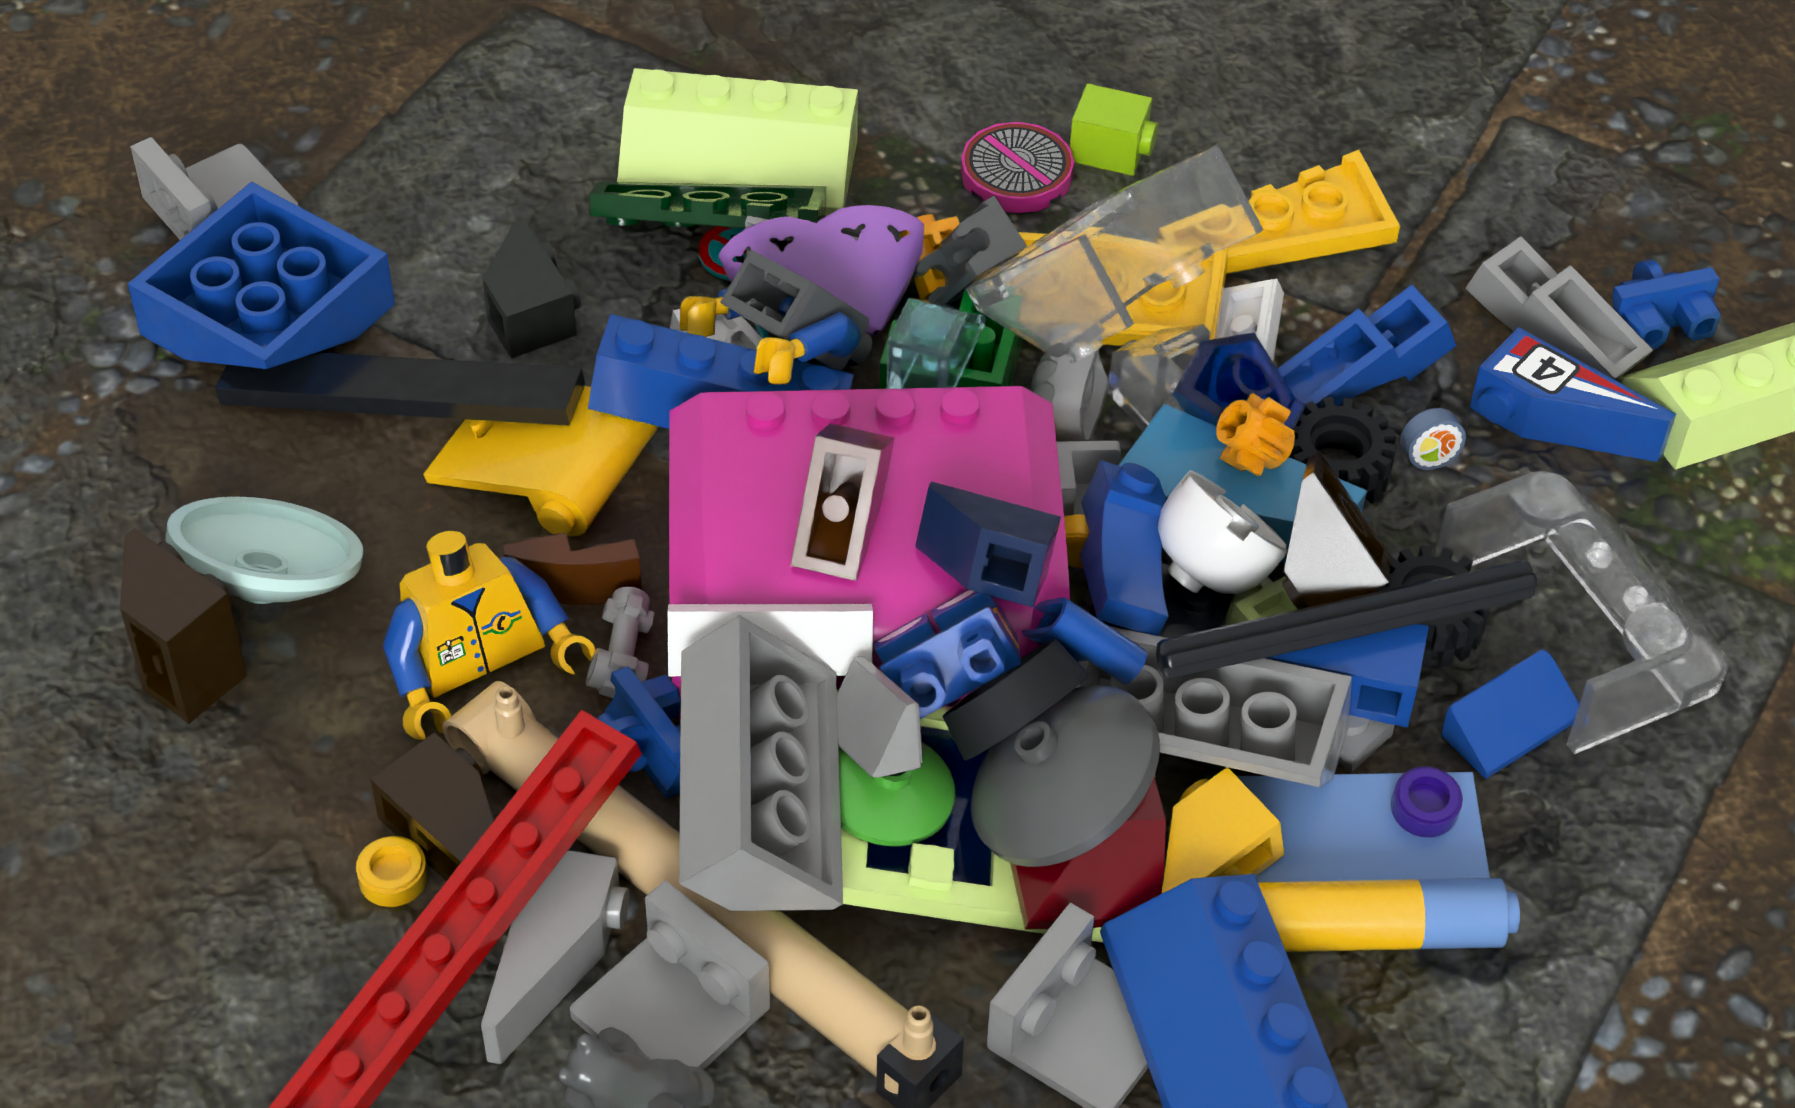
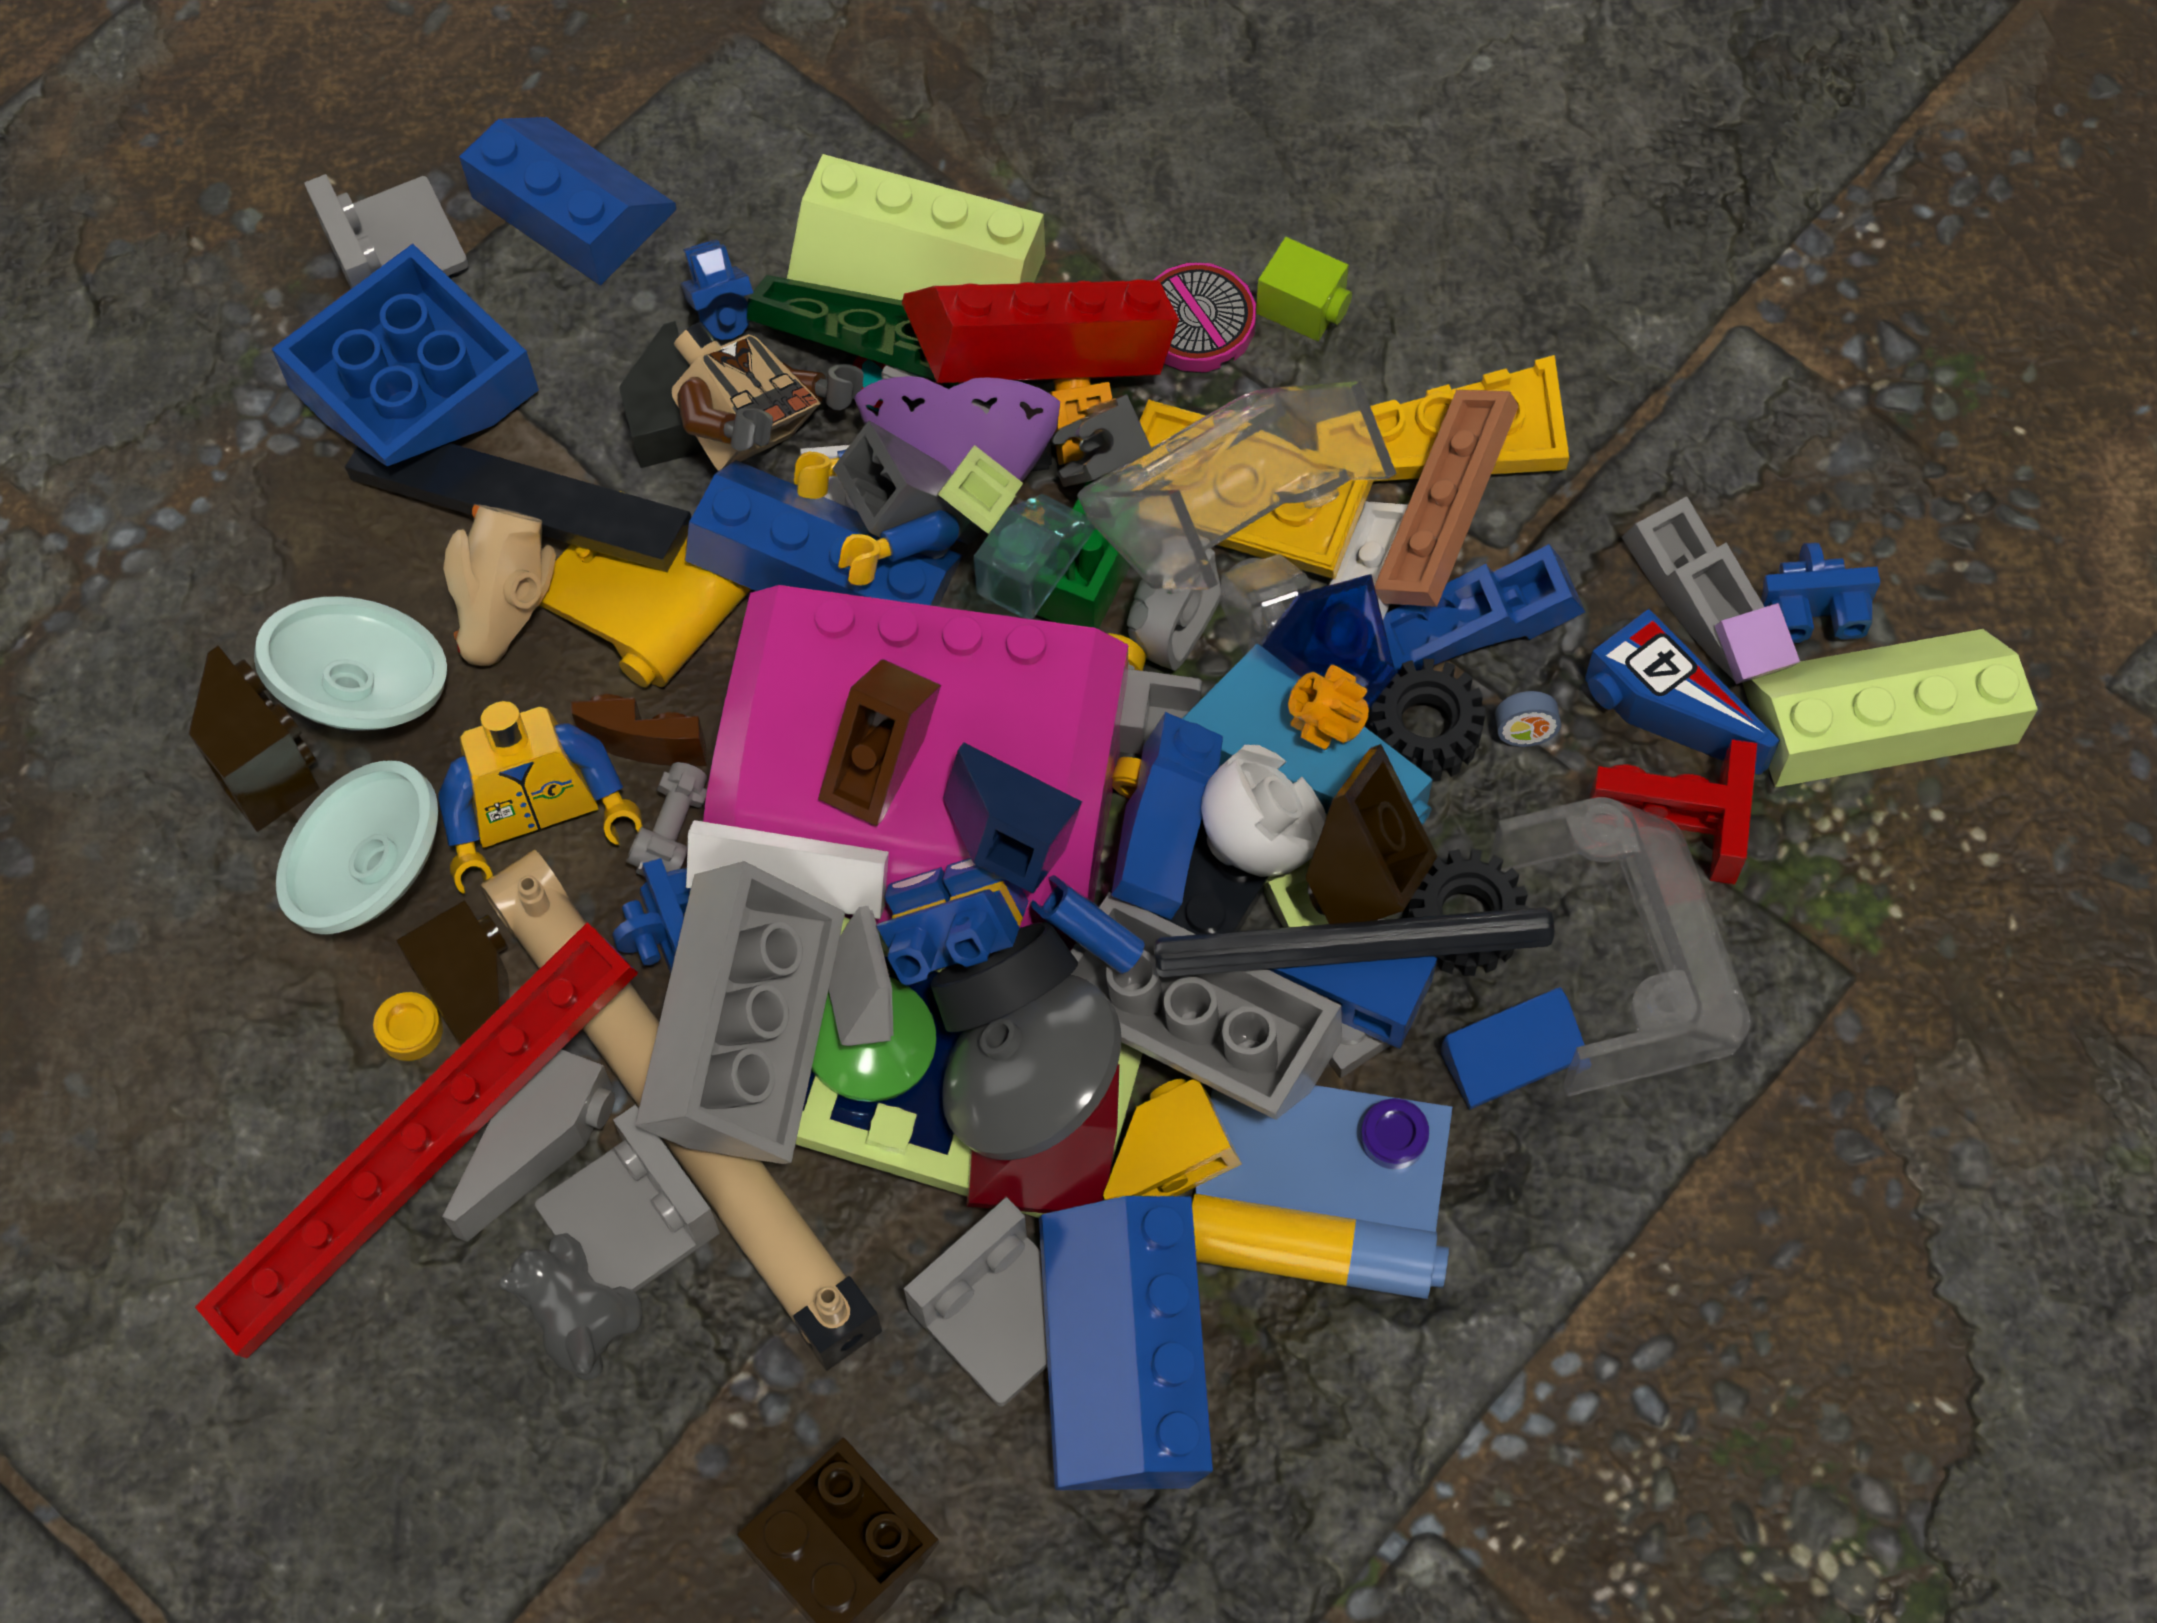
camera: 15 degrees right, 15 degrees up
(309, 705) = (357, 848): none -> light aqua dish
(378, 145) = (563, 194): none -> blue slope
(398, 453) = (496, 580): none -> tan animal
(555, 185) = (717, 290): none -> blue hips
(611, 269) = (747, 399): none -> torso
(872, 296) = (980, 489): none -> yellowish green slope
(904, 168) = (1043, 329): none -> red slope
(1303, 264) = (1446, 498): none -> nougat plate
(1625, 343) = (1757, 643): none -> lavender tile
(1626, 485) = (1695, 803): none -> red bracket

